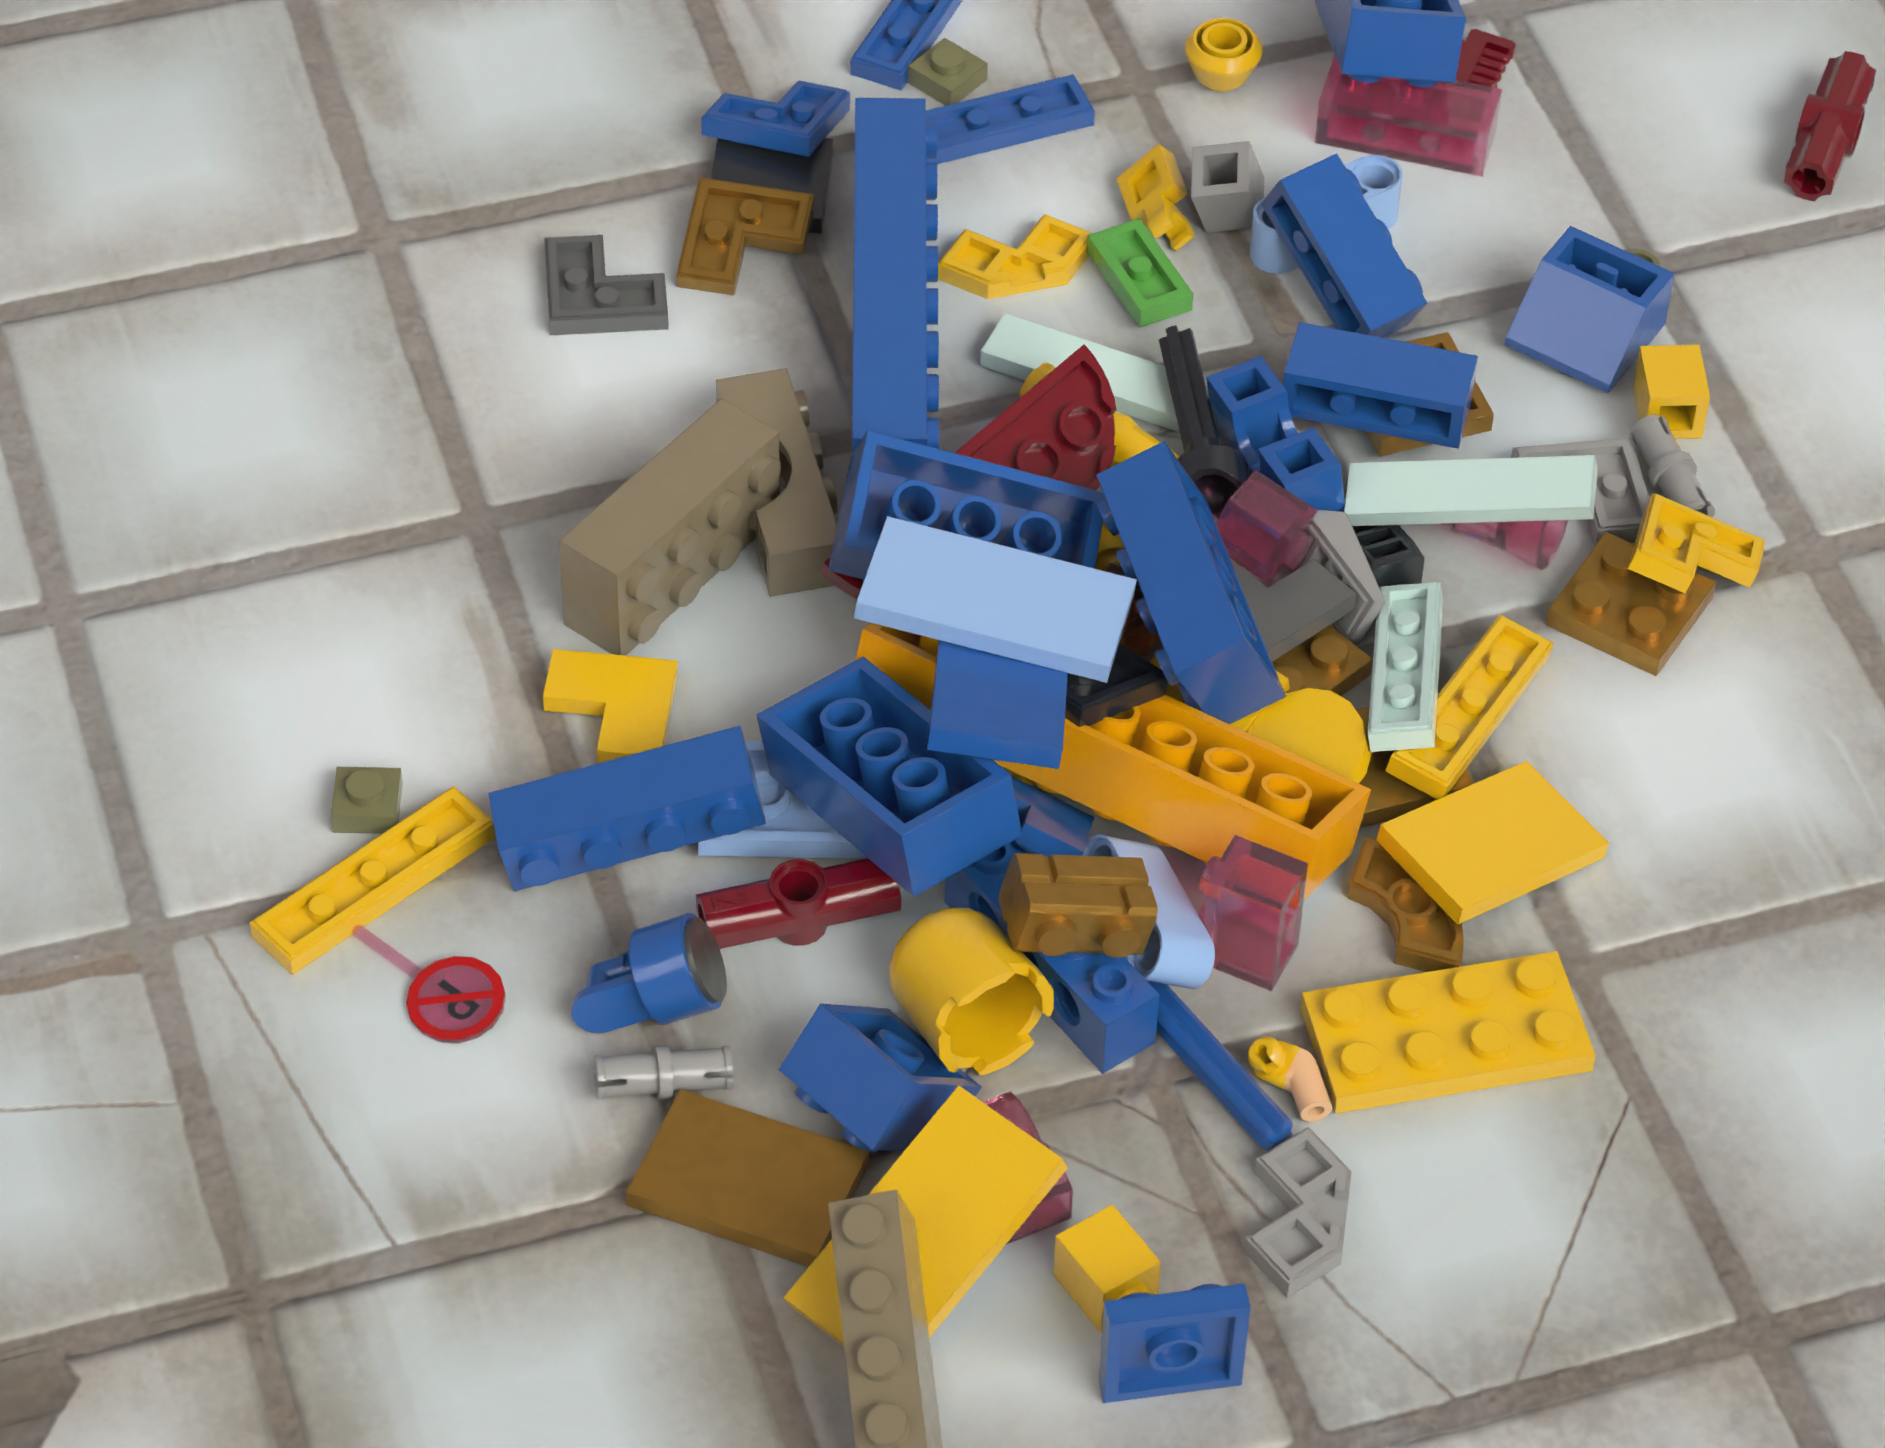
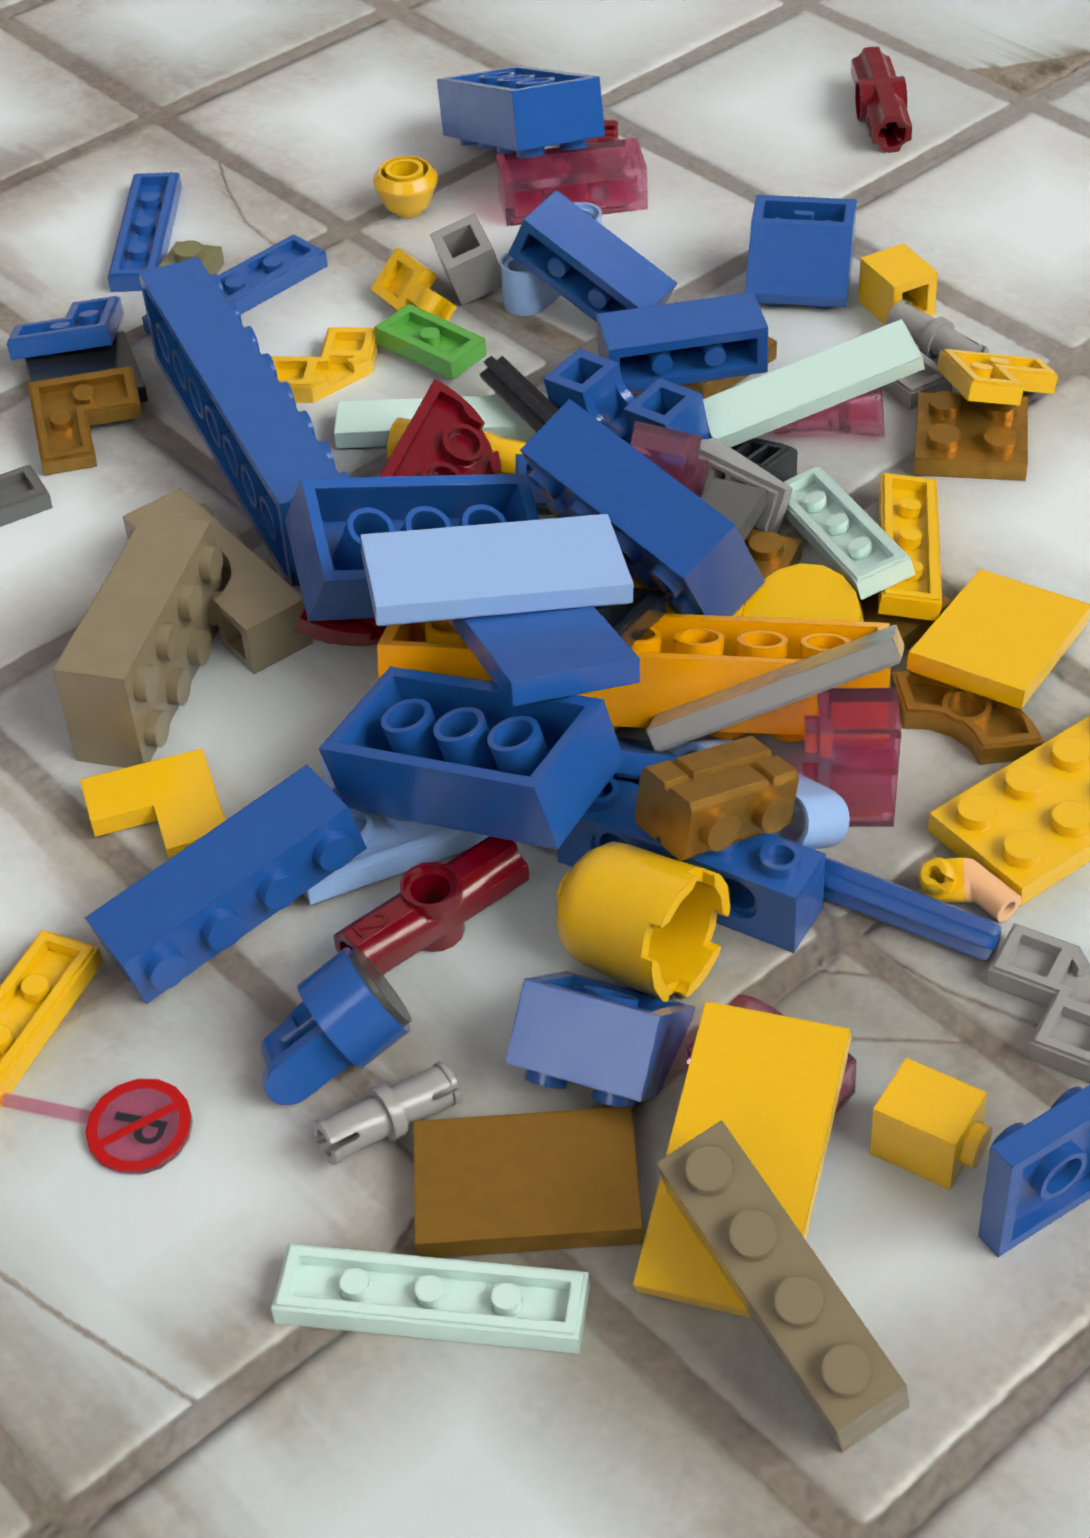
camera: 20 degrees left, 5 degrees down
(620, 1242) = (432, 1298): none -> light aqua tile
(1199, 819) = (776, 688): none -> light grey tile

